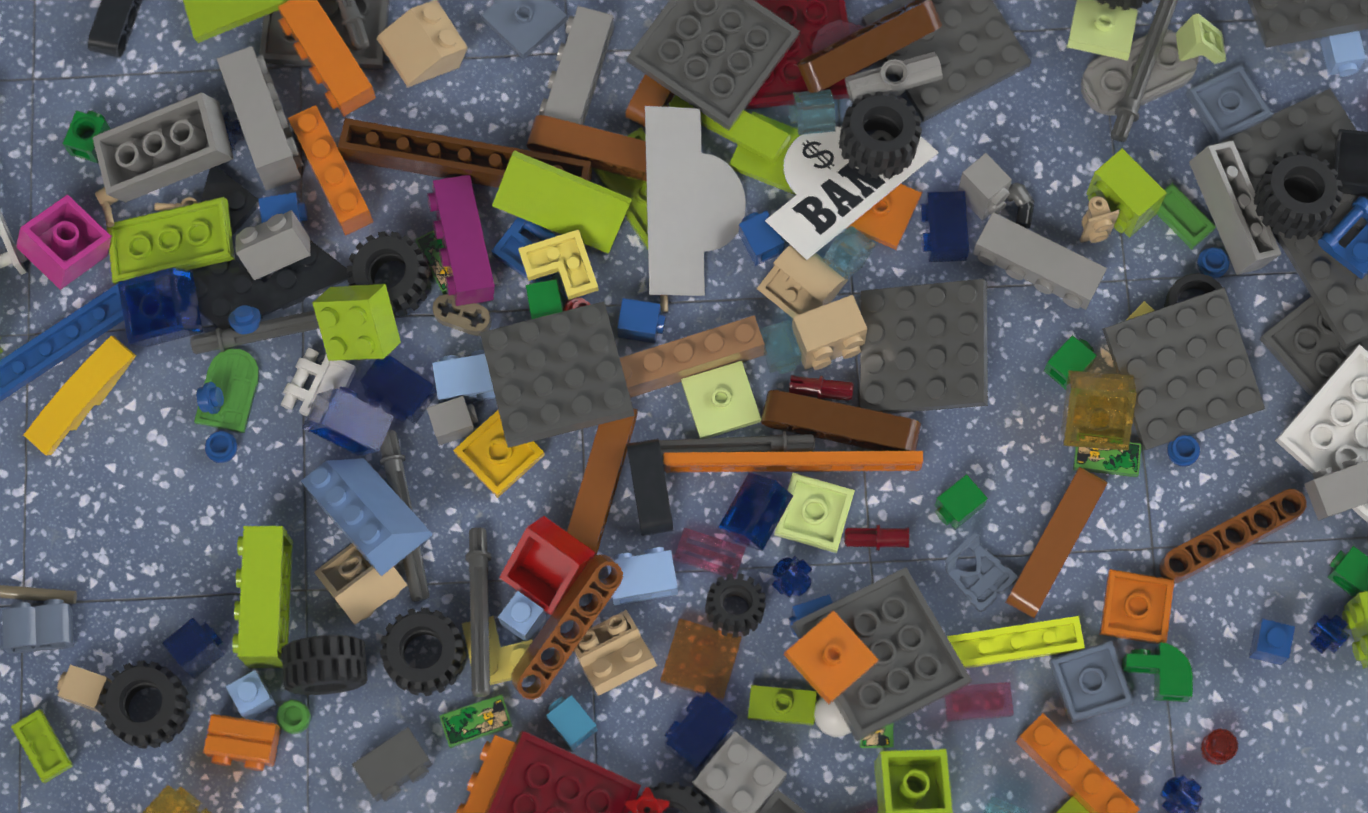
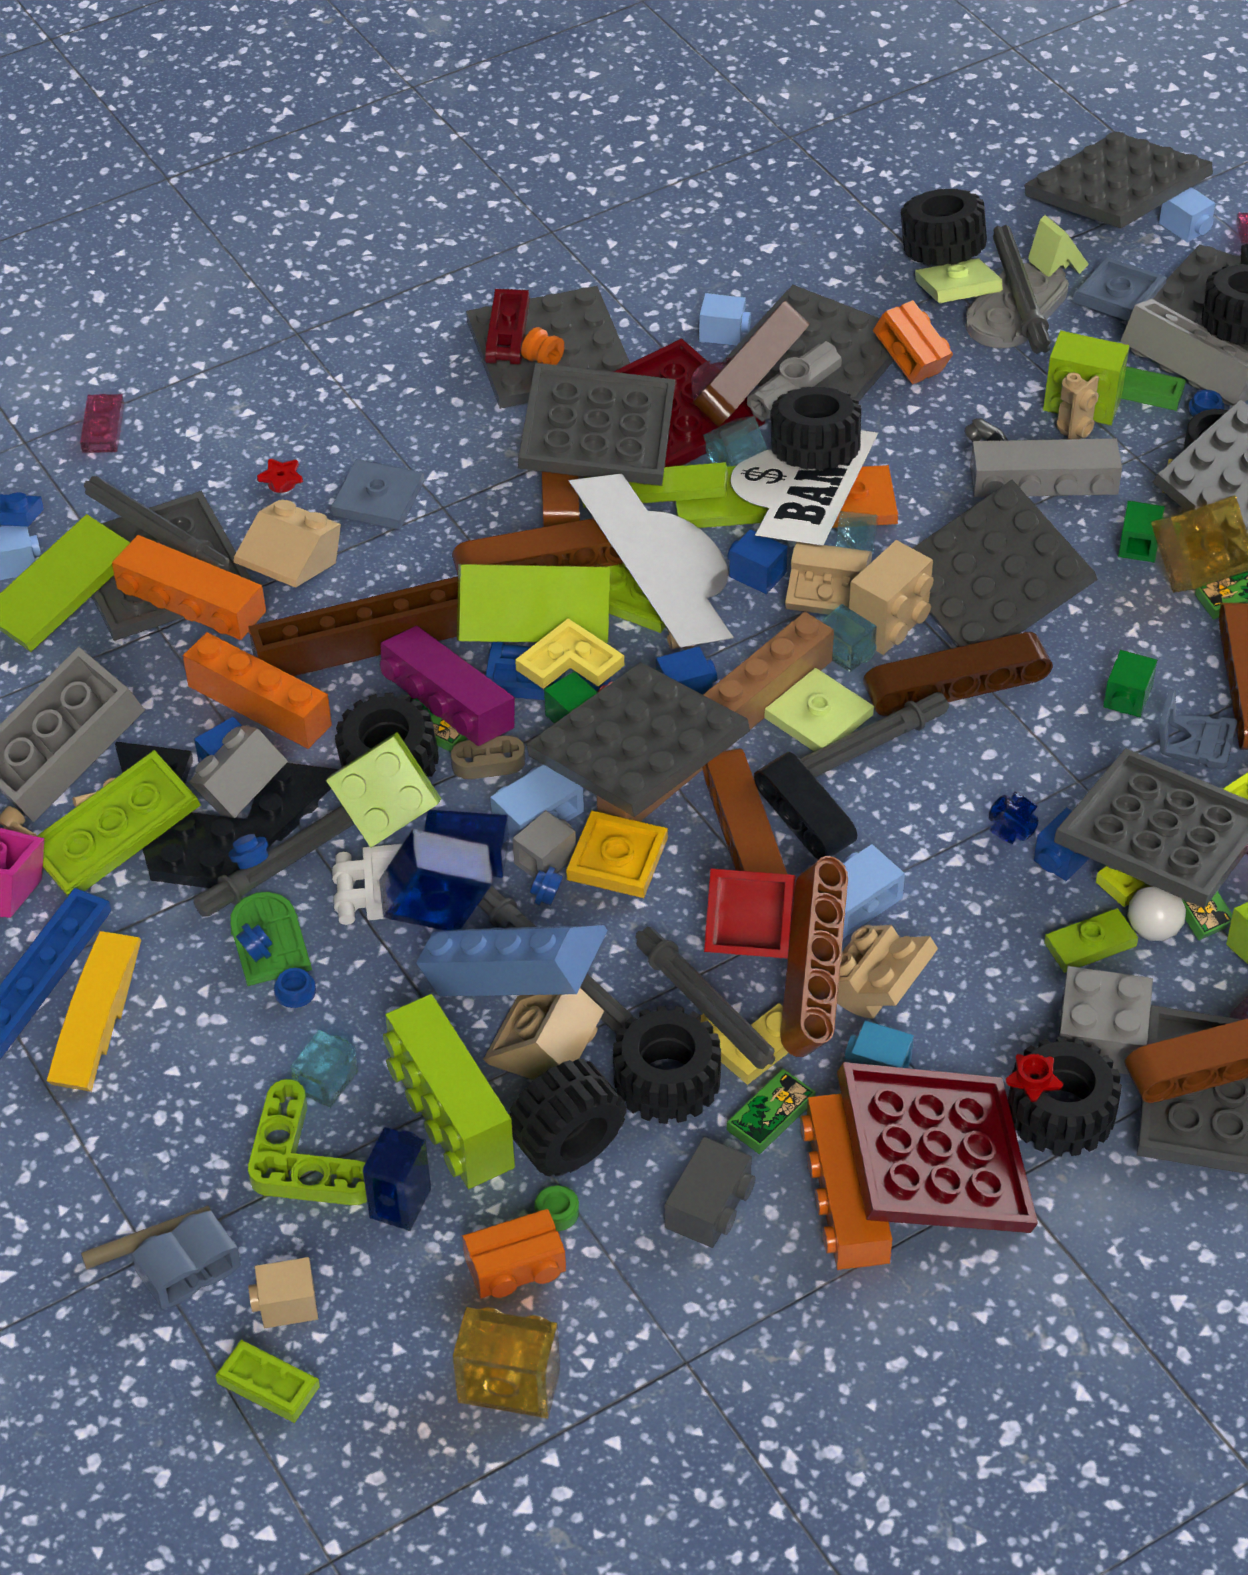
camera: 30 degrees left, 25 degrees down
(126, 685) = (379, 1299): black tyre -> none
(143, 578) = (284, 1157): none -> lime beam
(160, 307) = (143, 878): clear blue brick -> none
(203, 526) = (325, 1067): none -> clear light blue brick
(251, 695) = (494, 1198): light blue brick -> none
(261, 117) = (165, 677): light grey brick -> none
(433, 454) = (546, 886): none -> blue plate
(522, 616) = (753, 982): light blue brick -> none
(579, 65) = (462, 495): light grey brick -> none
(700, 659) = (974, 940): clear orange tile -> none
(700, 730) = (1027, 997): clear blue brick -> none
(705, 565) = (911, 849): clear pink tile -> none
(731, 622) = (974, 868): black tyre -> none
(755, 511) = (932, 777): clear blue brick -> none
(793, 461) = (940, 721): orange tile -> none
(815, 513) = (990, 759): yellowish green plate -> none
(821, 388) = (912, 650): dark red axle -> none
(831, 657) = (1120, 838): orange plate -> none
(877, 537) = (1071, 751): dark red axle -> none
(946, 226) = (934, 478): clear blue brick -> none
(985, 187) = (949, 426): light grey brick -> none
(1017, 81) = (913, 342): none -> orange brick

